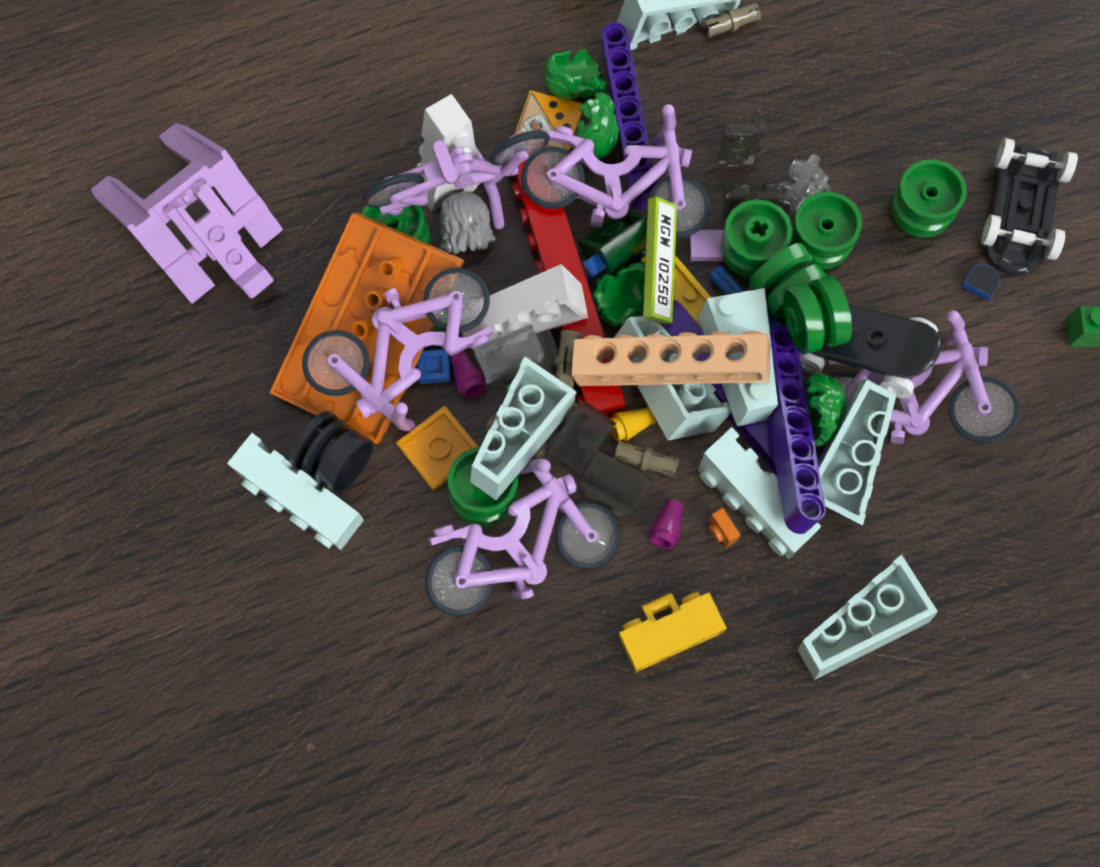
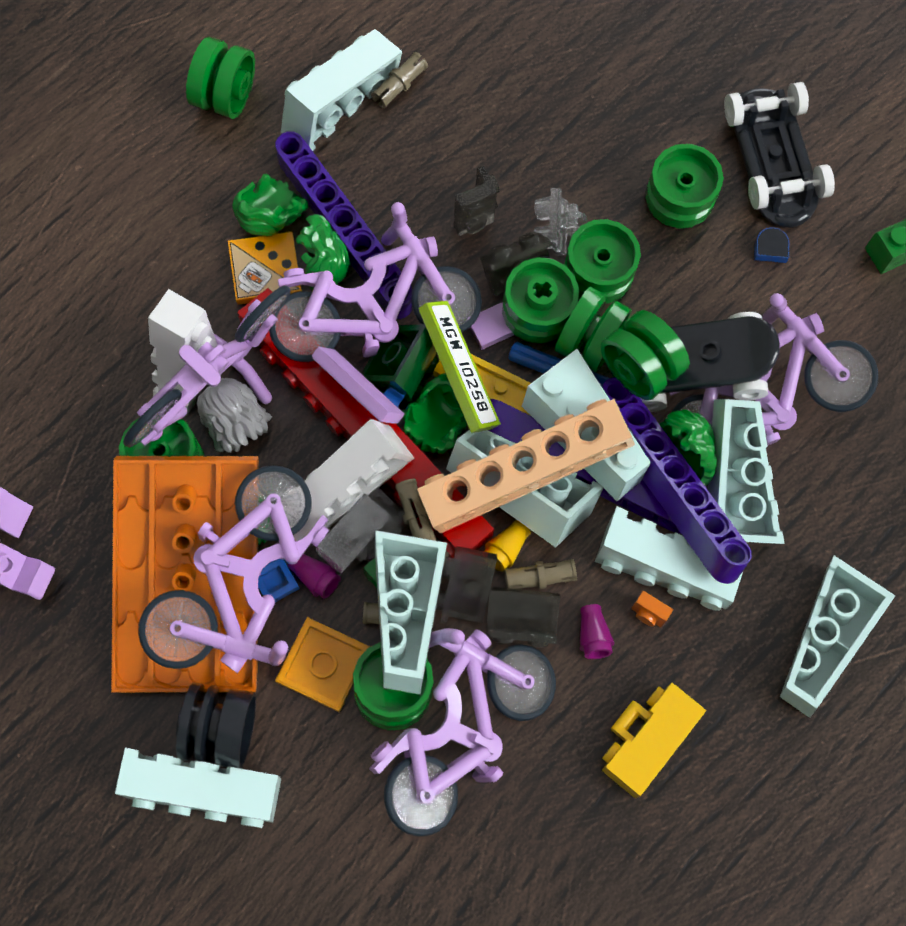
camera: 35 degrees left, 0 degrees up
(570, 240) = (357, 385): none -> lavender tile

